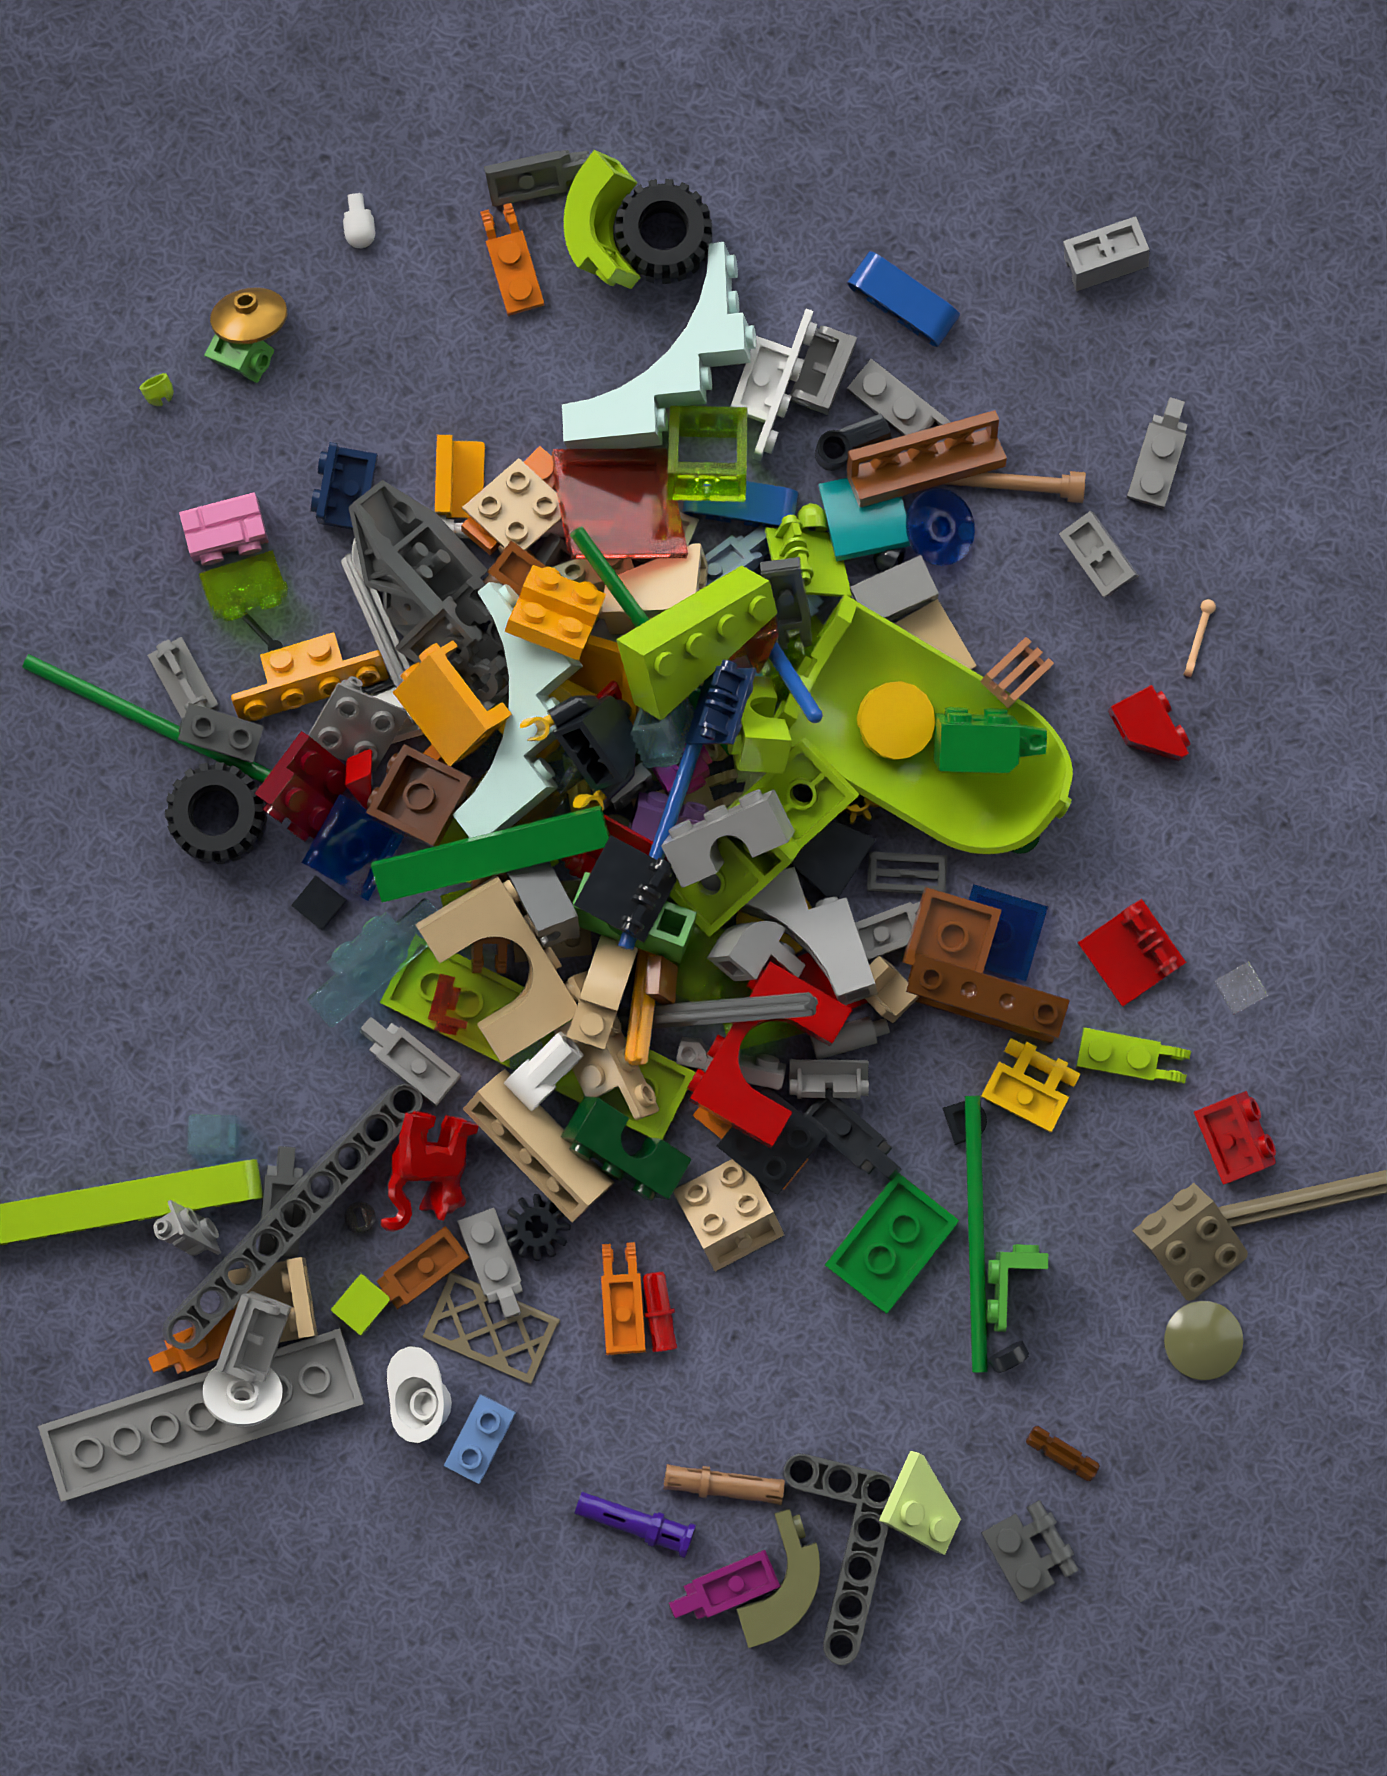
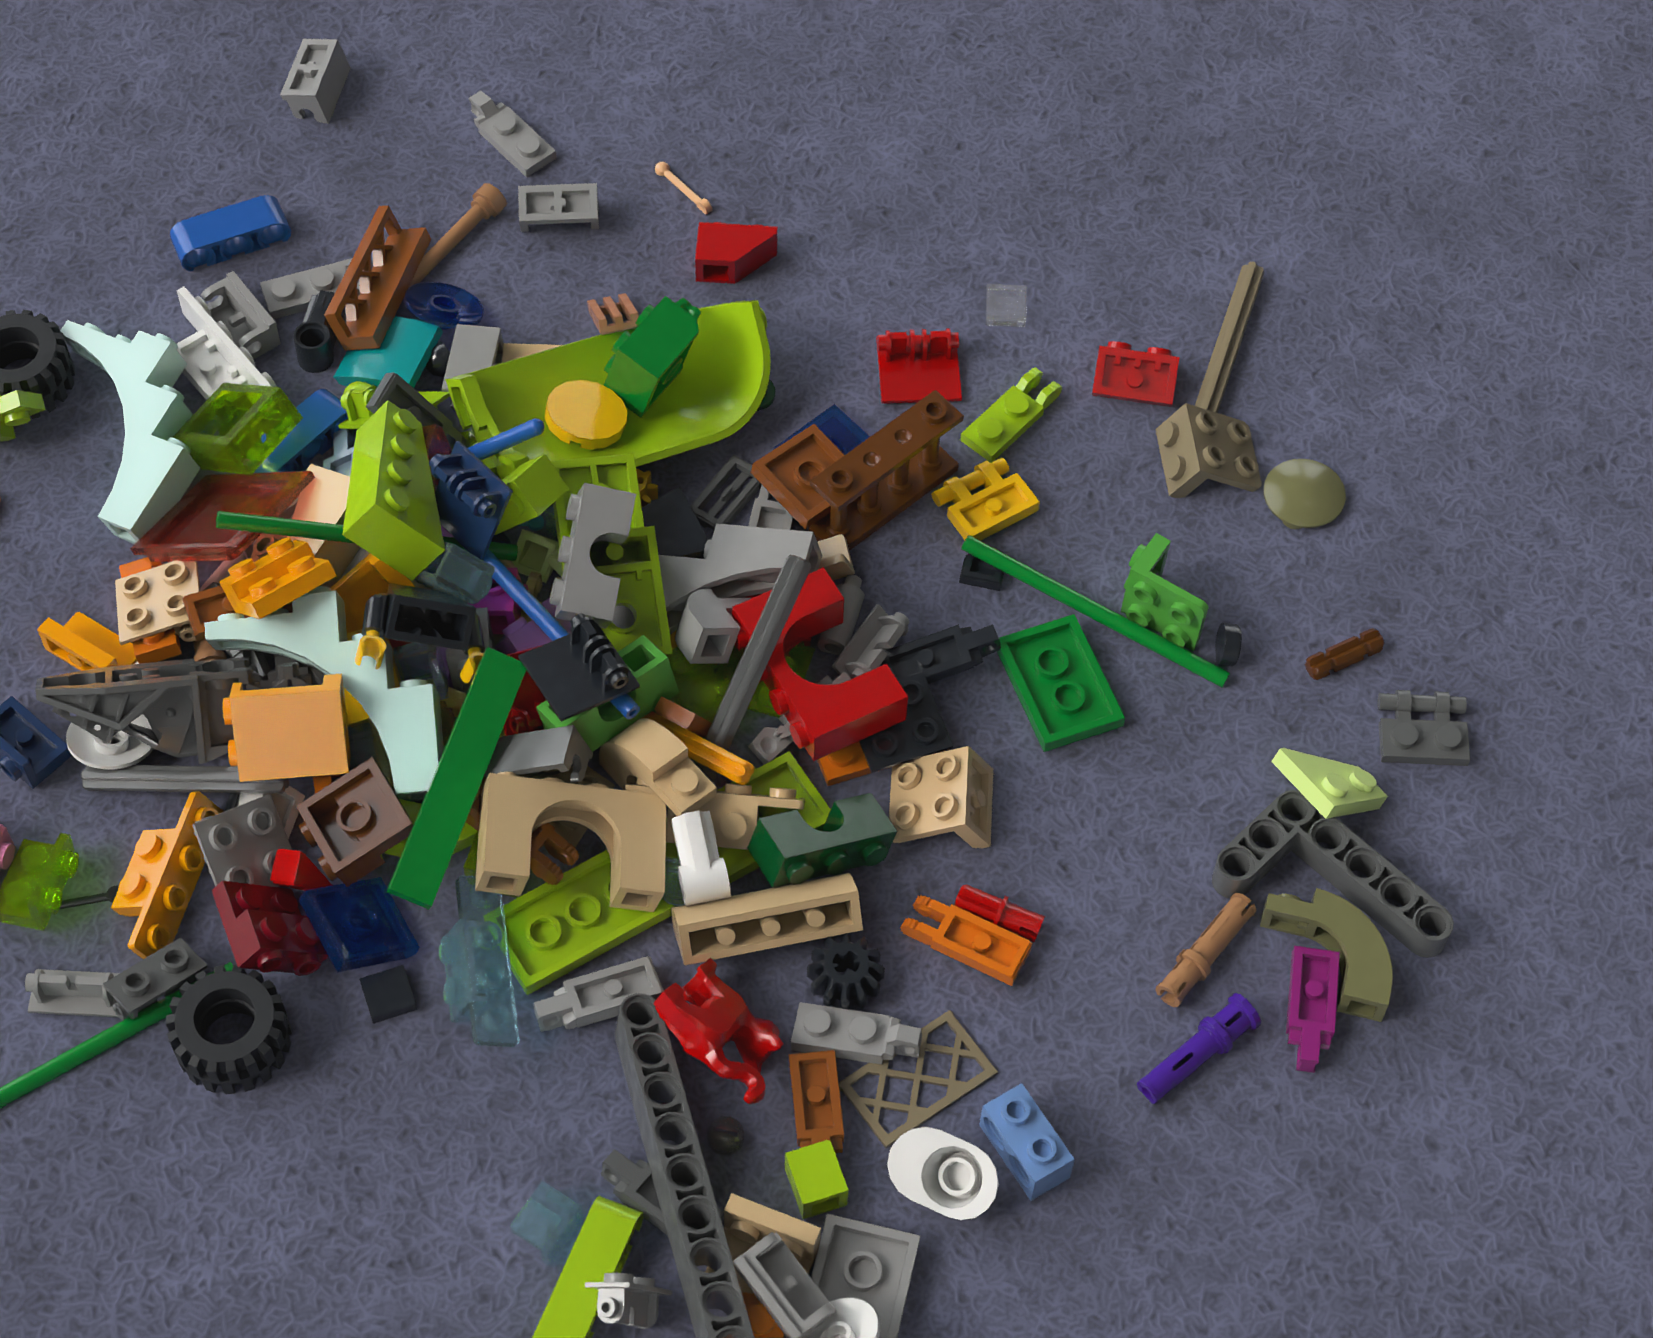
camera: 60 degrees left, 25 degrees down
(445, 999) = (570, 923): clear red bracket -> none

